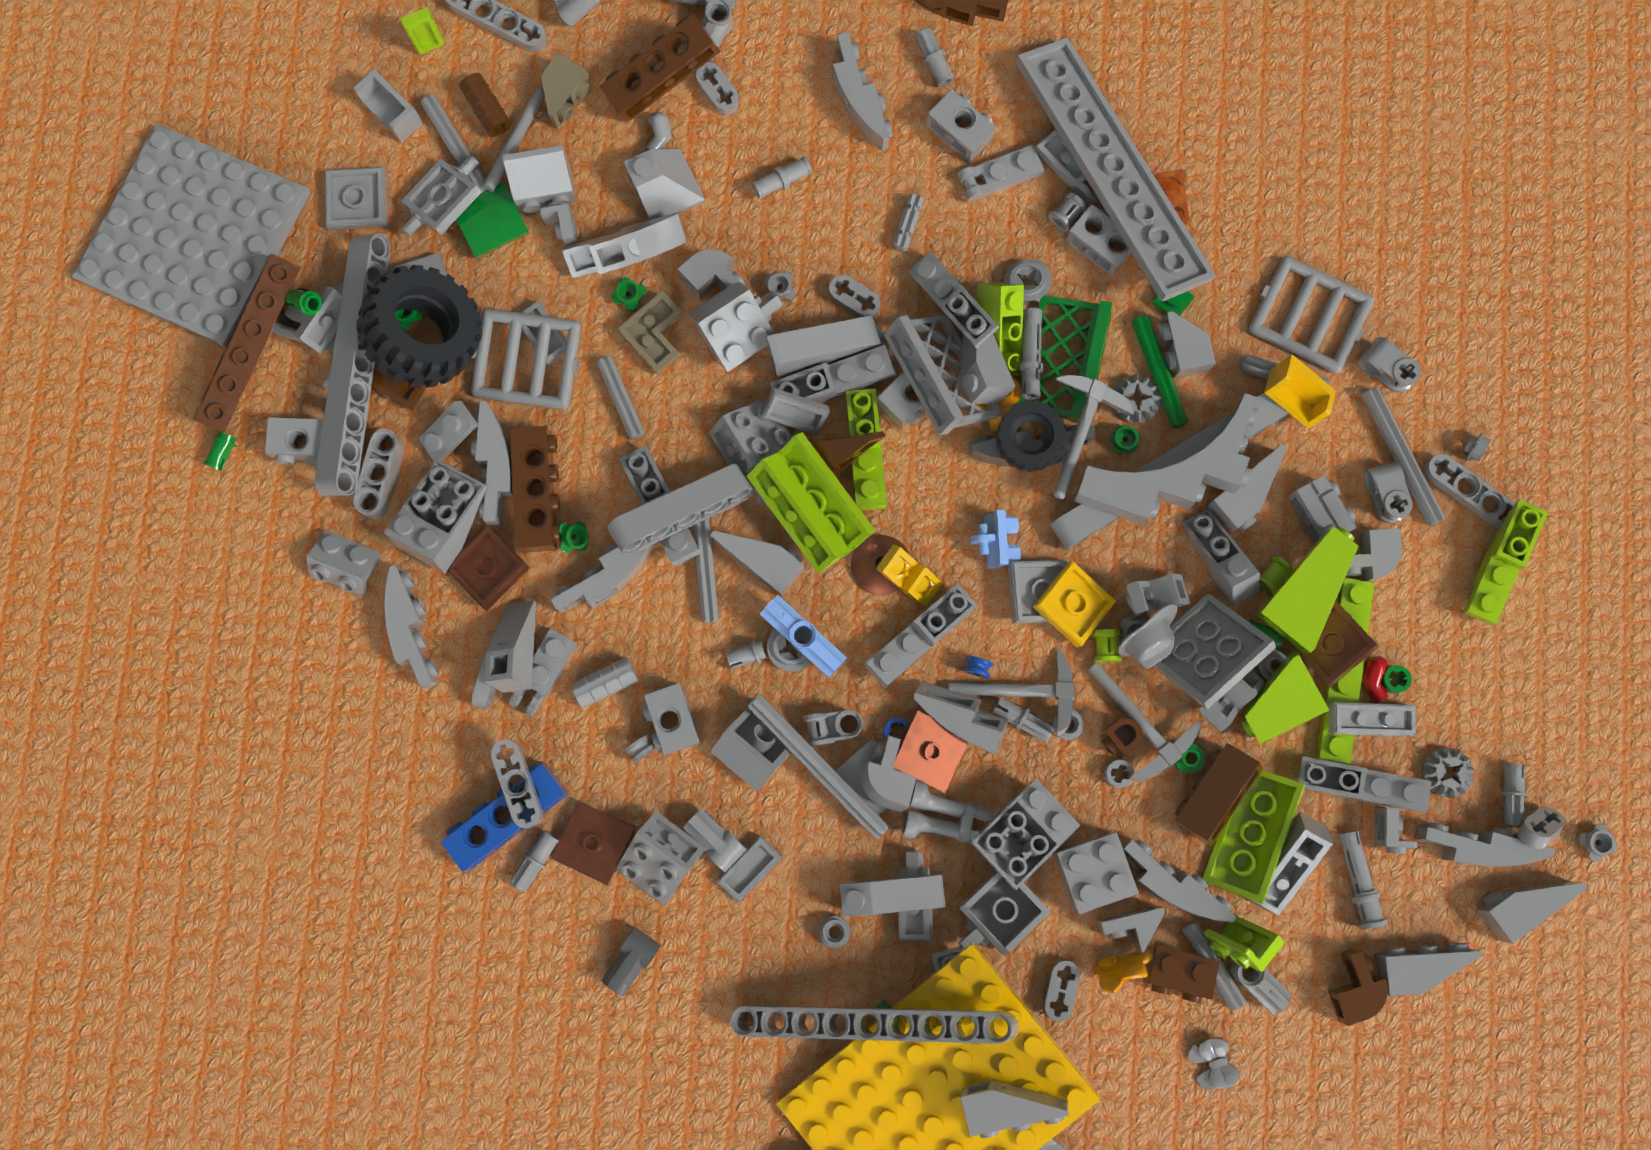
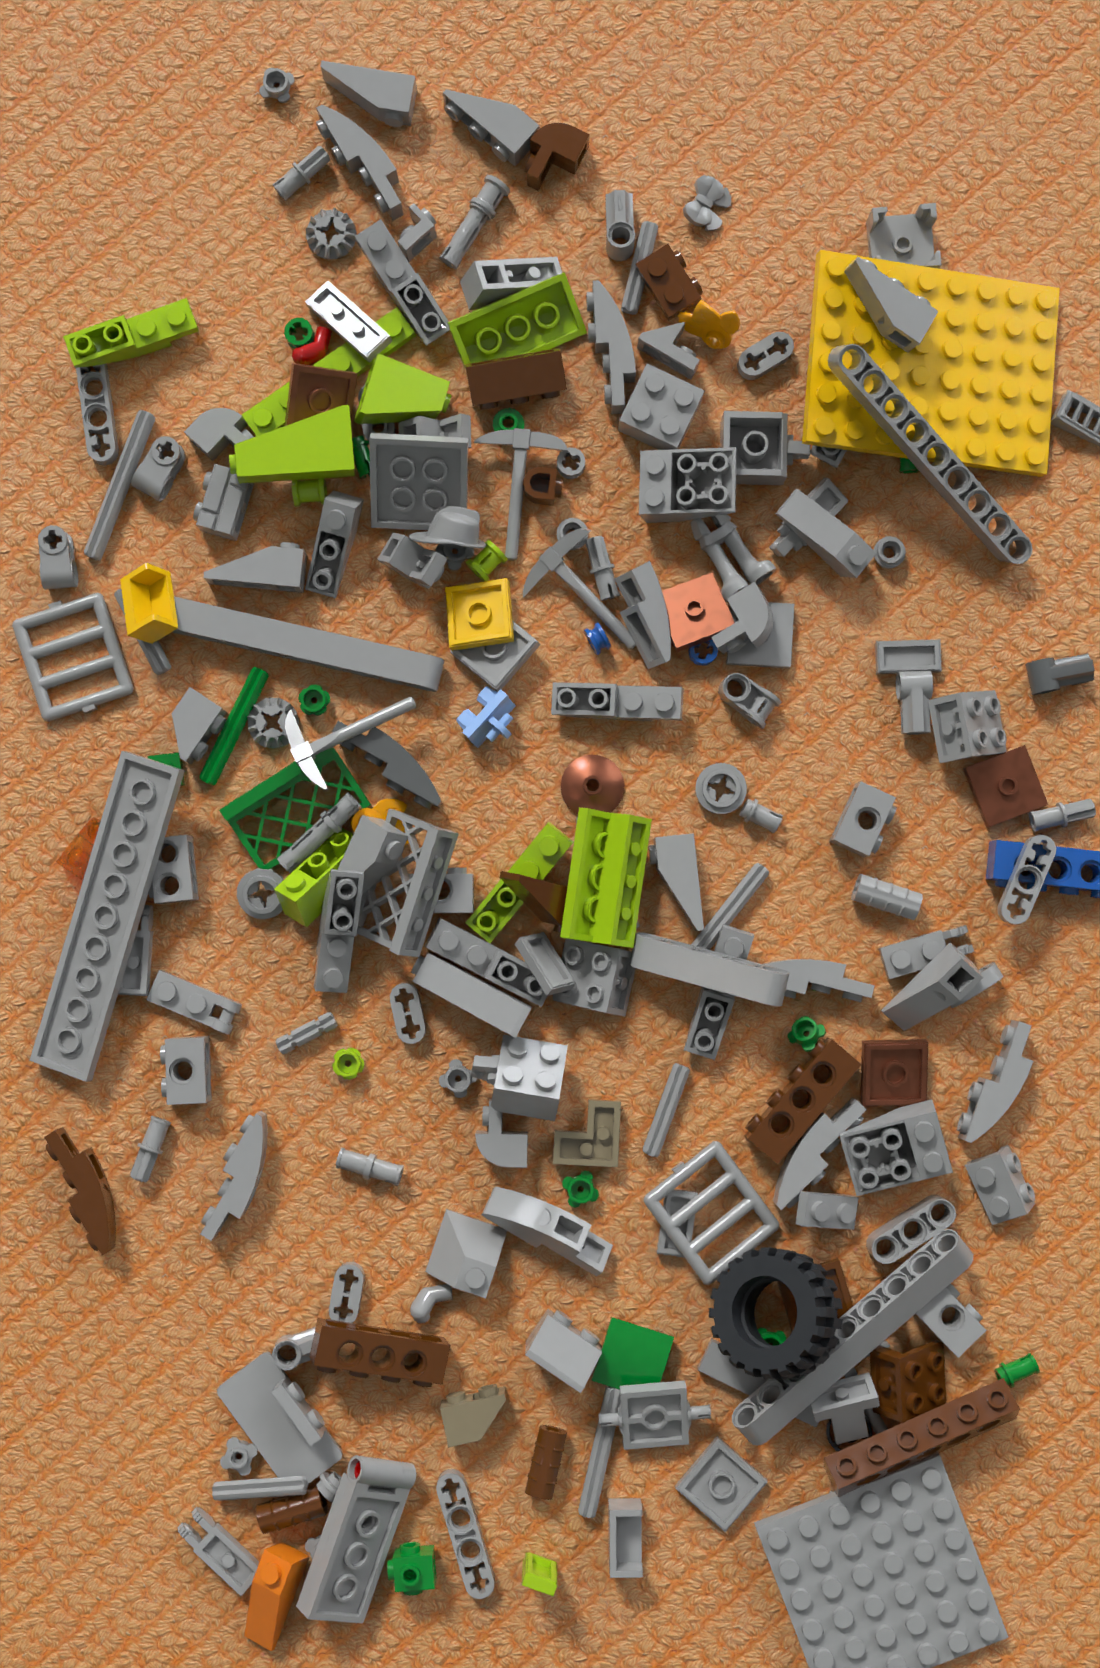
camera: 140 degrees left, 5 degrees up
(285, 373) = (908, 1381): none -> reddish brown bracket
(307, 302) = (845, 1419): green pin -> none
(515, 138) = (549, 1408): light grey bar -> none
(564, 221) = (578, 1291): light grey bracket -> none
(640, 749) = (907, 821): light grey bush -> none
(751, 750) = (817, 739): light grey slope -> none
(788, 622) = (707, 762): light blue piece -> none
(818, 766) = (789, 680): light grey axle -> none
(861, 221) = (340, 1067): none -> lime plate
(909, 575) = (581, 755): yellow slope -> none
(1037, 413) = (377, 743): black tyre -> none
(1076, 207) = (176, 917): light grey bush -> none
(1135, 494) = (312, 619): light grey arch -> none
(1246, 944) = (604, 255): lime bracket -> none
(1477, 446) = (58, 437): light grey plate -> none
(1541, 827) = (308, 125): light grey beam -> none

